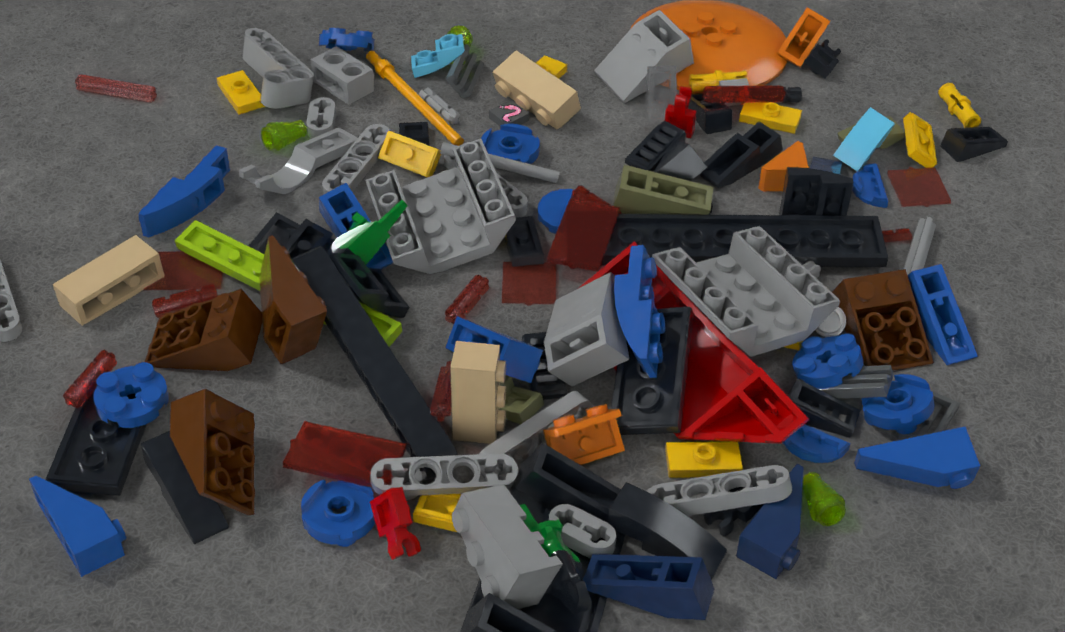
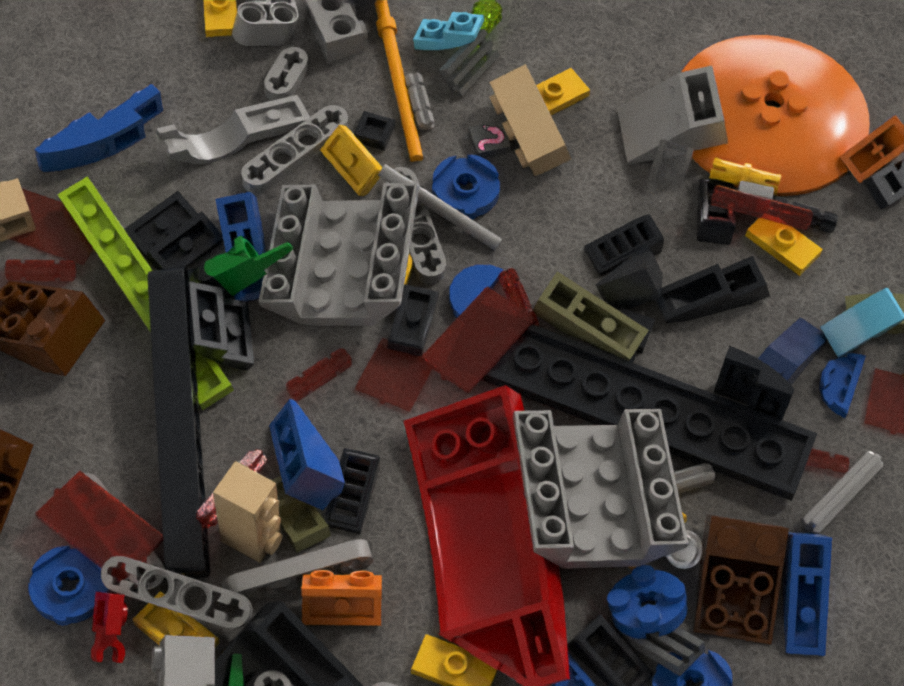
camera: 20 degrees right, 15 degrees up
(280, 134) = (234, 84): clear neon green cone -> none
(288, 305) = (118, 340): reddish brown slope -> none
(585, 333) = (403, 472): light grey slope -> none
(637, 310) = (453, 488): blue slope -> none
(657, 402) = (450, 546): black piece -> none
(679, 114) = (670, 212): red plate -> none
(774, 172) = (752, 329): orange slope -> none

